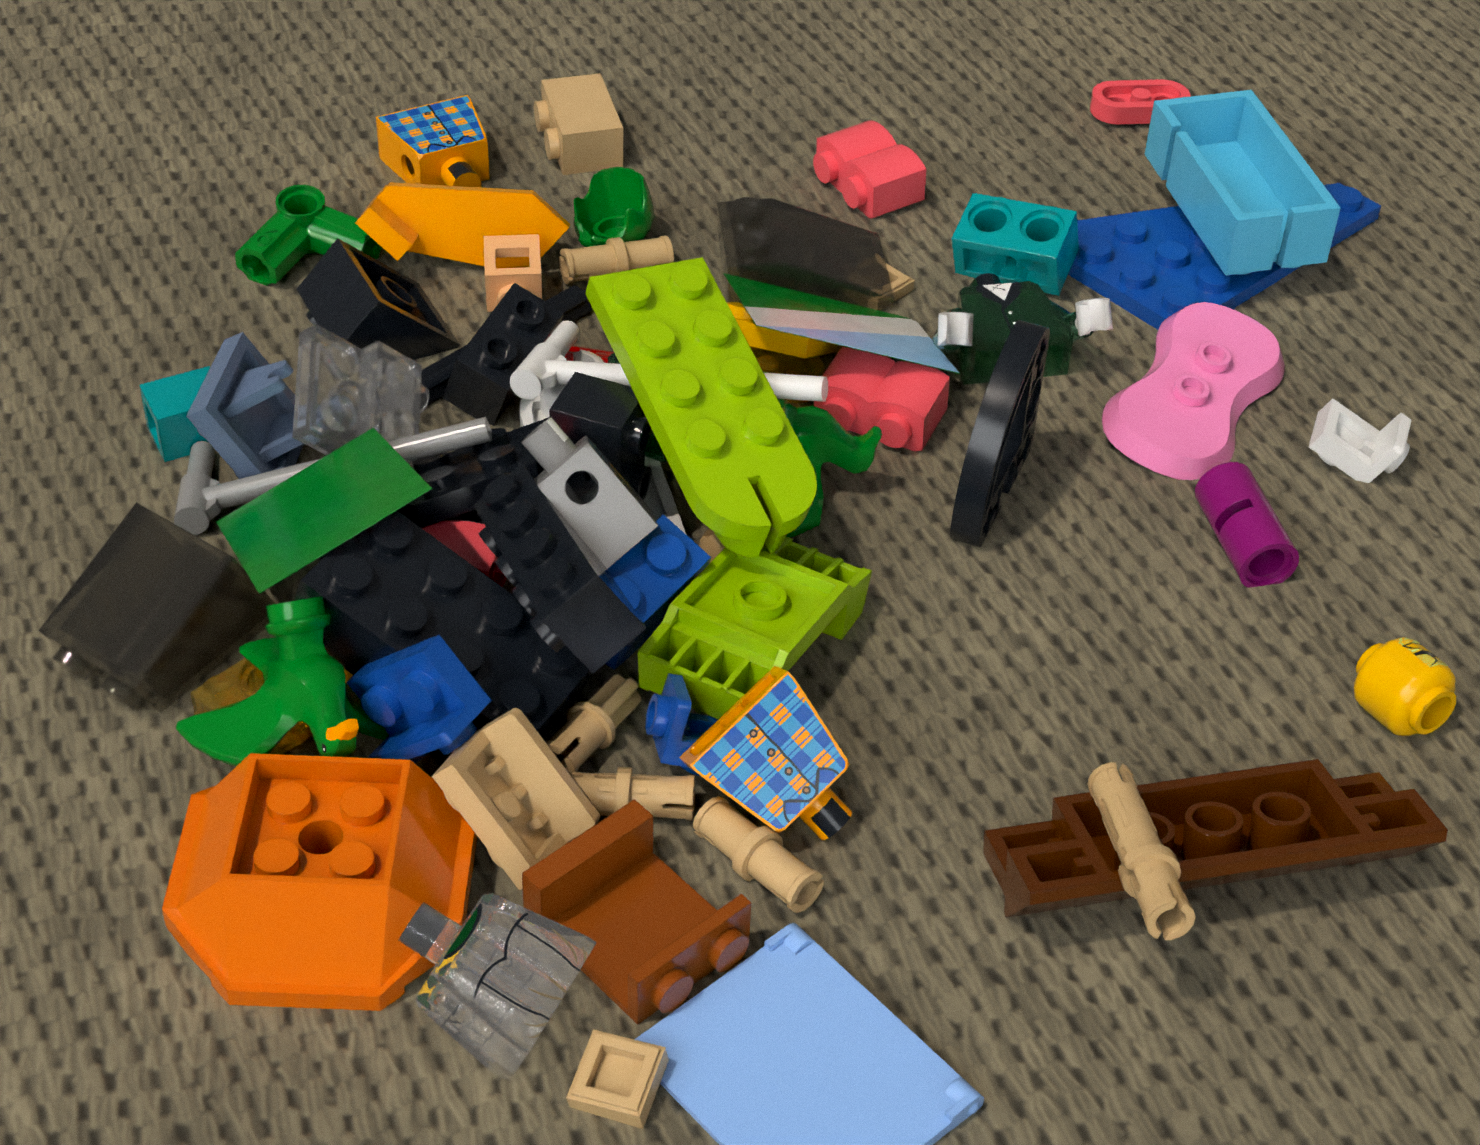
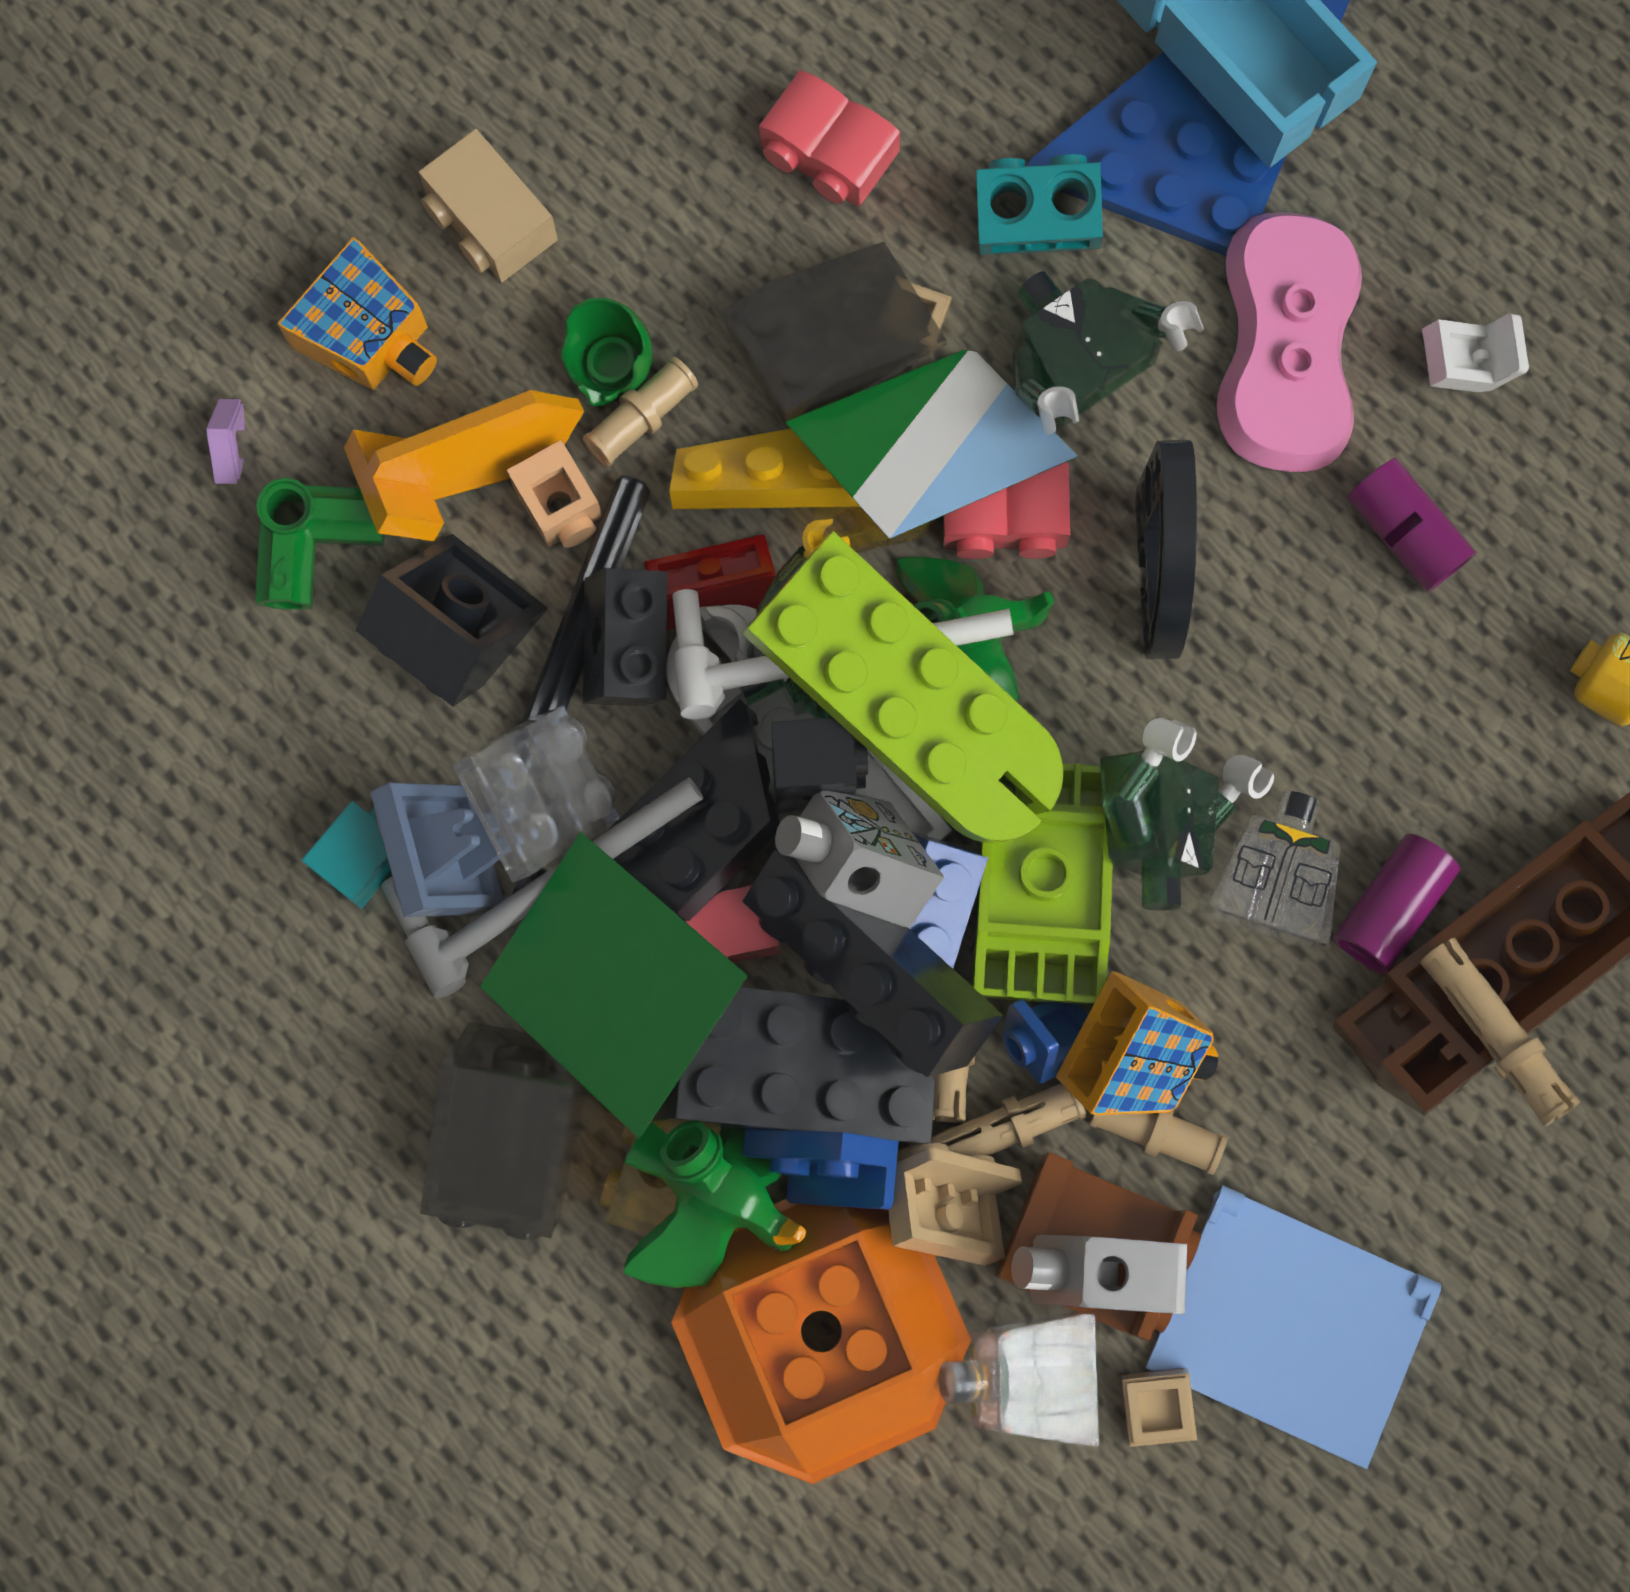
camera: 25 degrees left, 35 degrees up
(289, 171) = (221, 435): none -> lavender tile
(618, 884) = (1085, 1273): none -> light grey torso
(896, 602) = (1167, 810): none -> clear green torso
(982, 709) = (1279, 877): none -> clear torso
(1066, 769) = (1396, 903): none -> magenta pin

